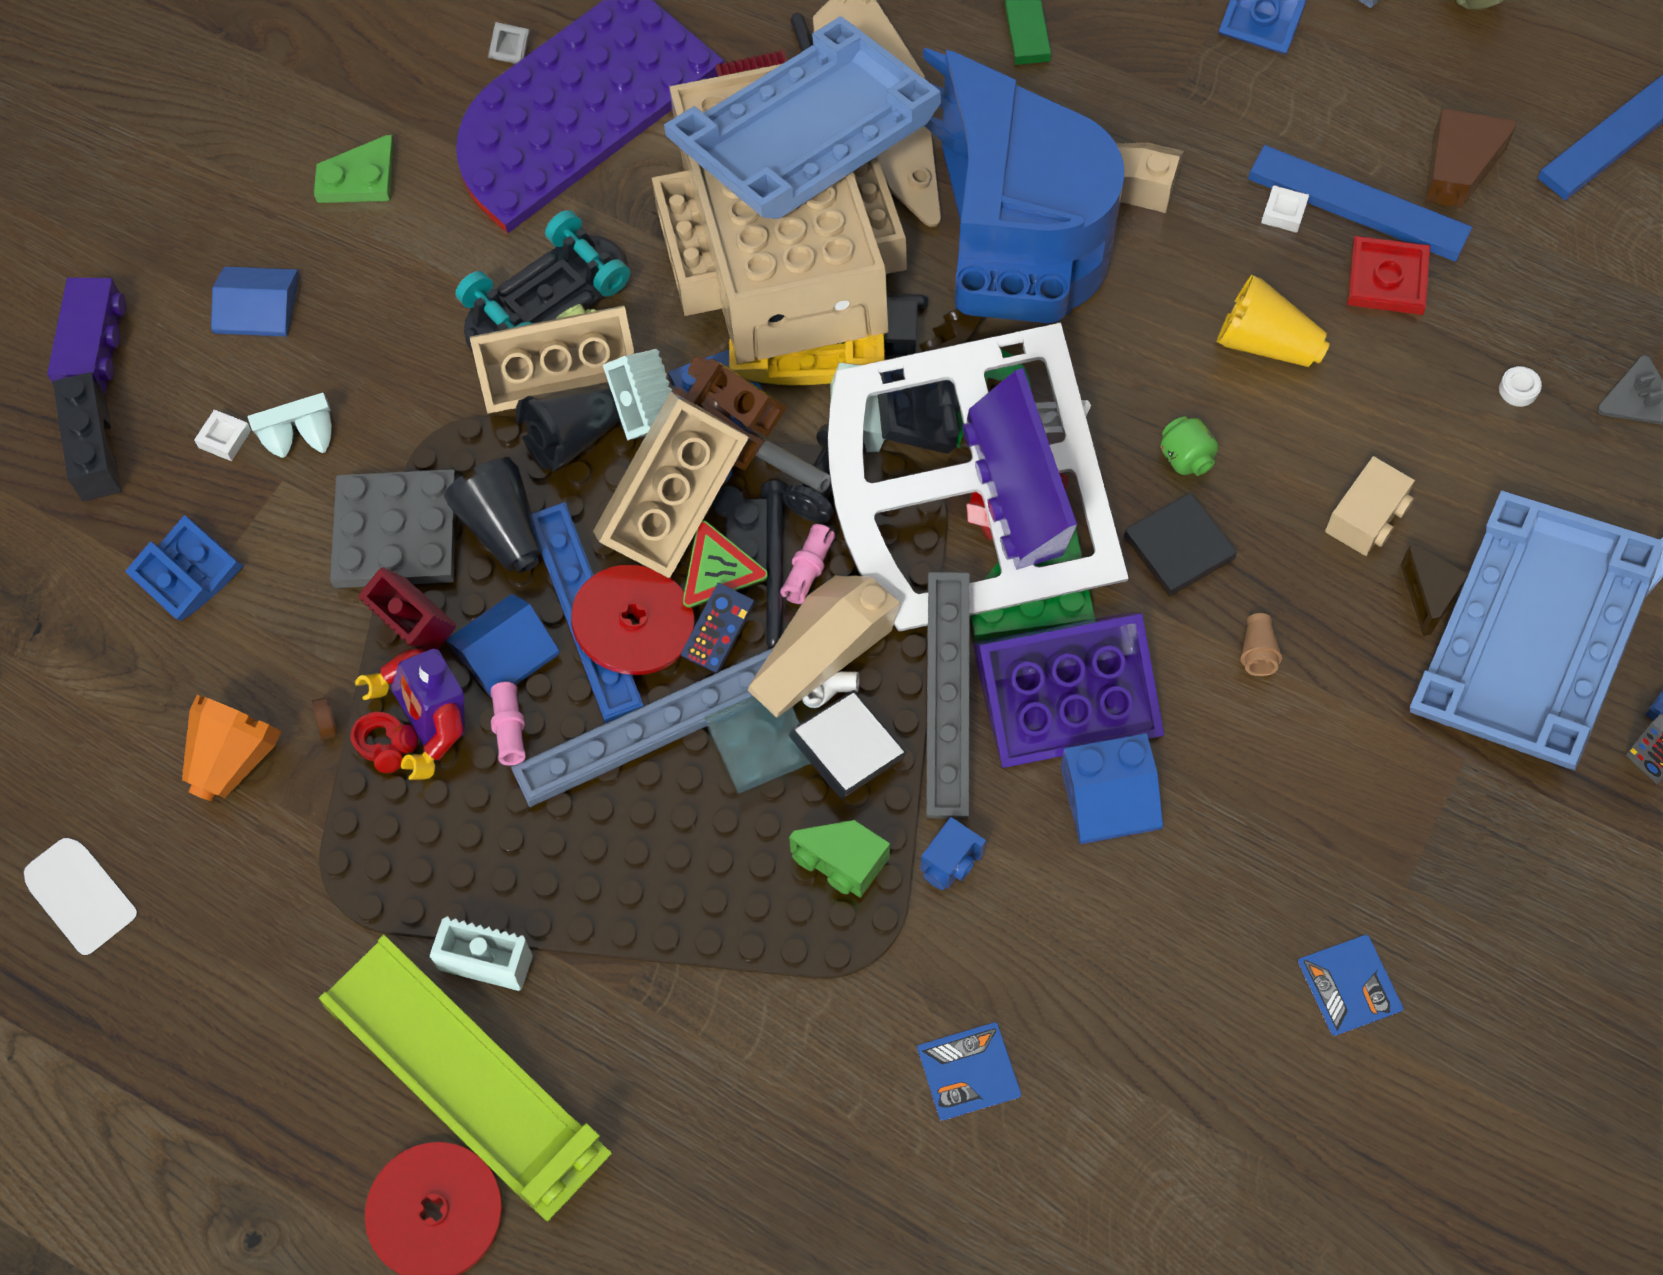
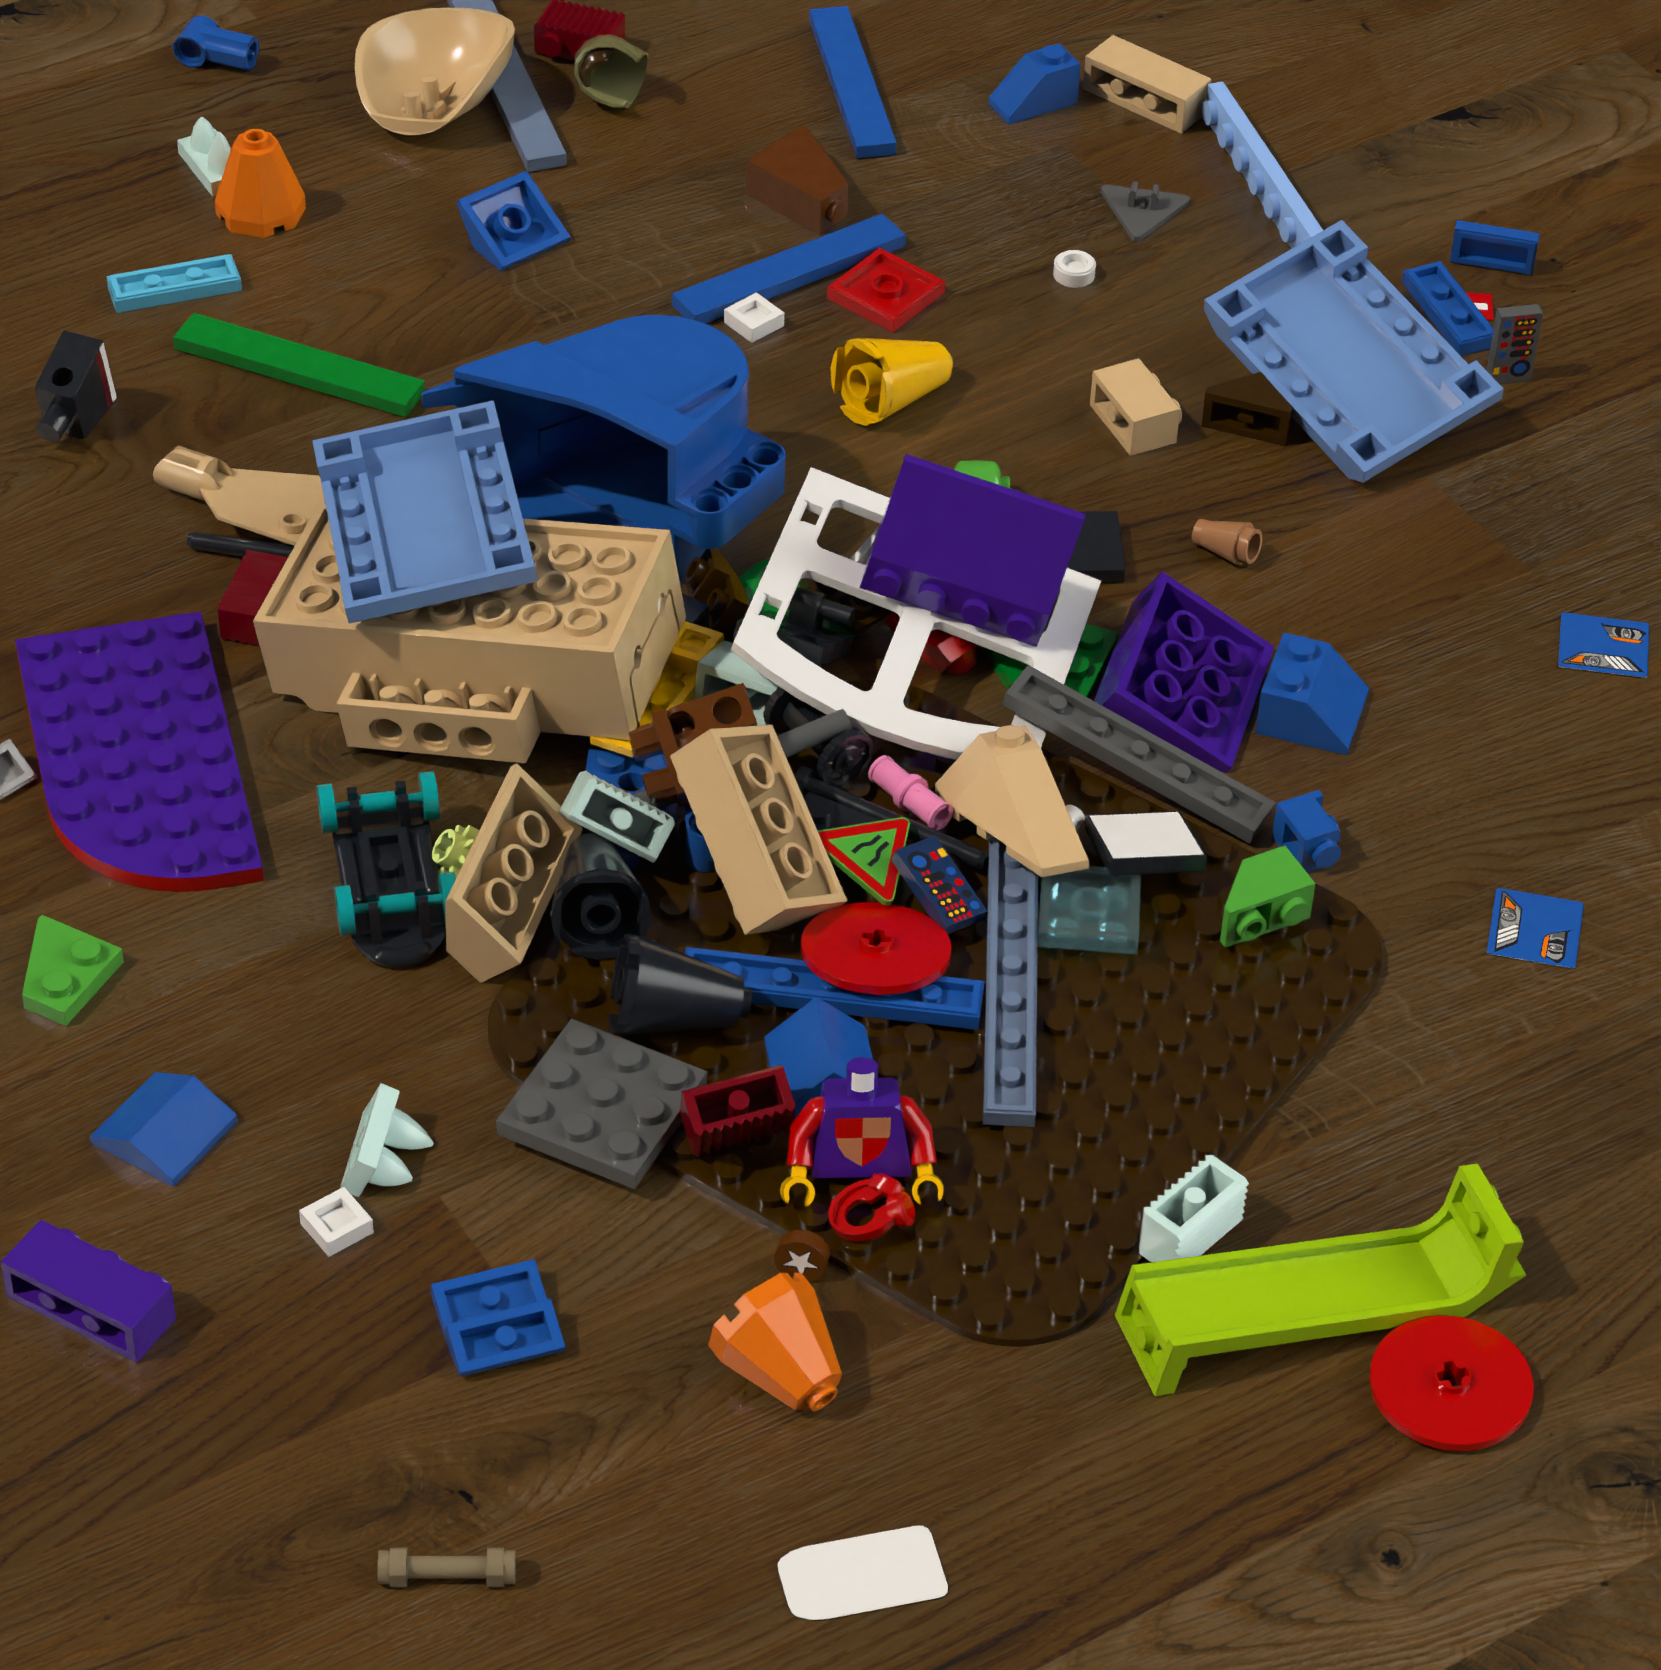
camera: 65 degrees left, 20 degrees down
(82, 423) = (283, 1336): black arch -> none
(507, 723) = (936, 1091): bright pink pin -> none

